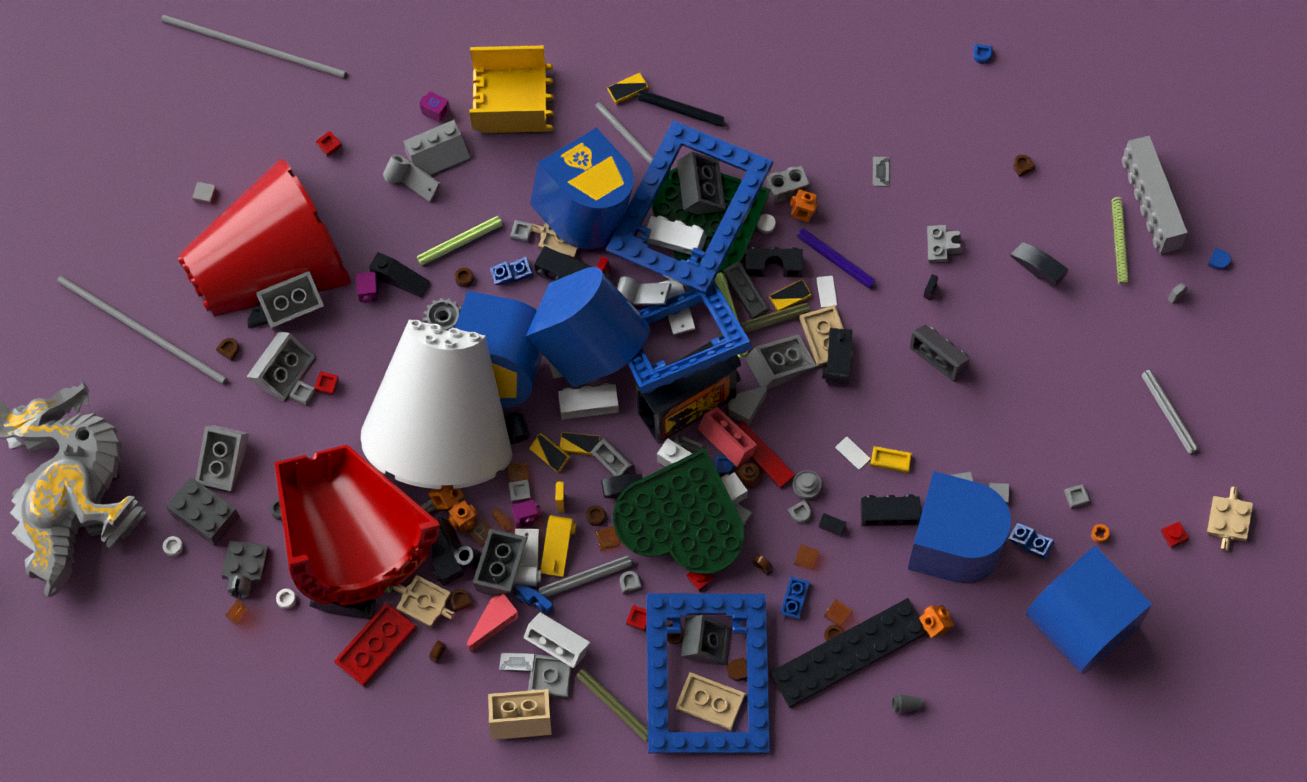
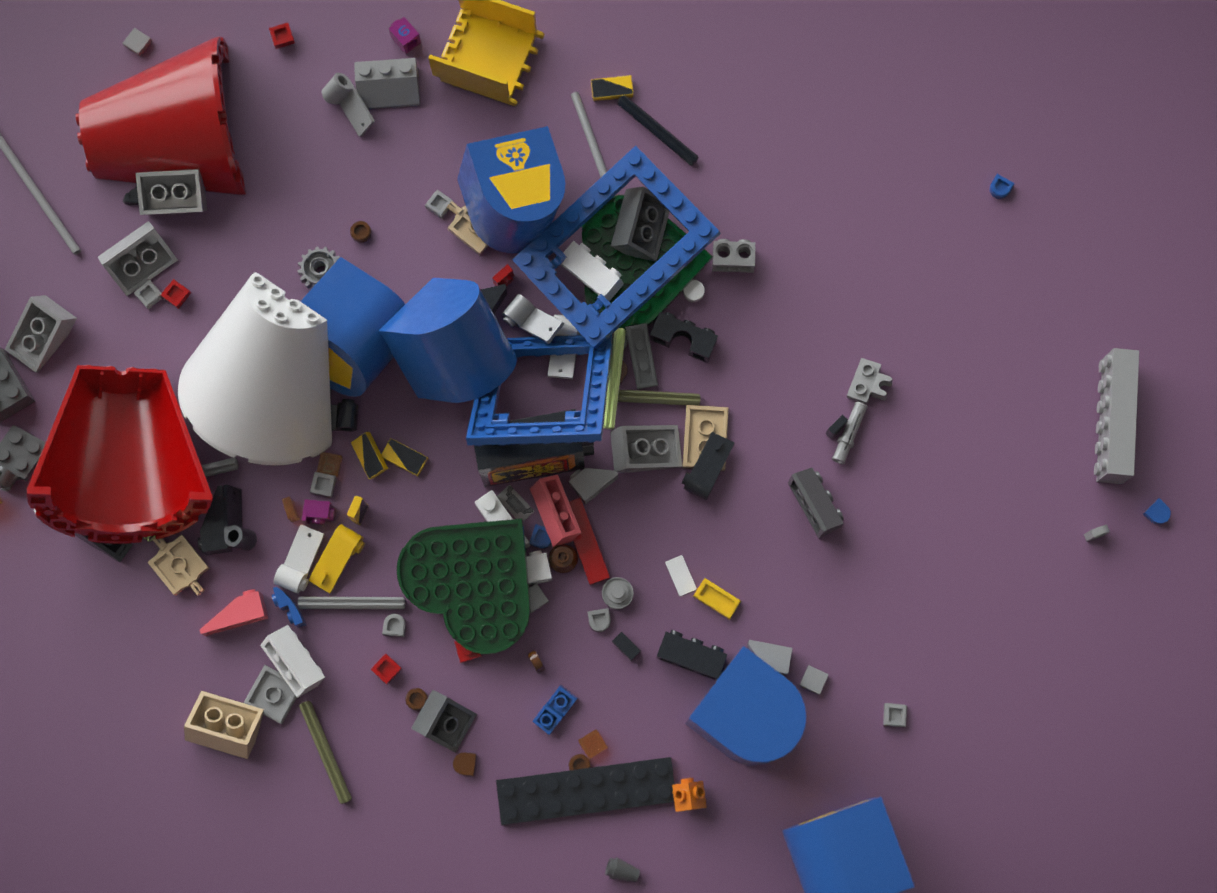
camera: 20 degrees right, 10 degrees up
(228, 348) = (95, 218): reddish brown tile -> none
(367, 287) = (257, 206): magenta brick -> none
(375, 644) = (113, 591): red tile -> none
(398, 275) = (294, 205): black slope -> none
(437, 651) = (170, 623): reddish brown tile -> none
(445, 497) = (241, 467): orange brick -> none
(459, 240) = (372, 190): yellowish green axle -> none
(460, 521) = (258, 494): orange brick -> none
(460, 599) = (216, 577): reddish brown tile -> none
(480, 532) = (266, 514): clear orange tile -> none
(499, 562) = (267, 555): dark grey slope -> none
(511, 272) = (411, 244): blue slope -> none
(516, 661) = (245, 666): sticker -> none
(556, 265) = (463, 261): black brick -> none
(588, 401) = (430, 415): white brick -> none
(595, 515) = (389, 540): reddish brown tile -> none
(607, 538) = (388, 569): clear orange tile -> none
(611, 457) = (430, 485): light grey slope -> none
(613, 486) = (423, 518): black slope -> none
(710, 701) = (423, 786): tan tile -> none
(741, 607) = (424, 674): blue plate -> none
(790, 295) = (686, 379): tile -> none
(803, 205) = (739, 287): orange brick -> none
(806, 557) = (585, 670): clear orange tile -> none
(826, 291) = (727, 388): white sticker -> none
(836, 258) = (751, 356): dark purple axle -> none
(880, 171) = (838, 277): sticker -> none
(943, 295) = (846, 442): none -> light grey pin
(1023, 164) = (992, 327): reddish brown tile -> none
(1031, 541) = (826, 745): blue slope -> none
(1039, 263) = (962, 444): black slope -> none
(1102, 527) = (906, 770): orange bush -> none
(1120, 242) = (1059, 449): yellowish green piece -> none
(1169, 411) = (1032, 661): light grey axle -> none
(1174, 534) = (980, 798): red plate -> none
(1229, 519) = (1046, 804): tan plate -> none

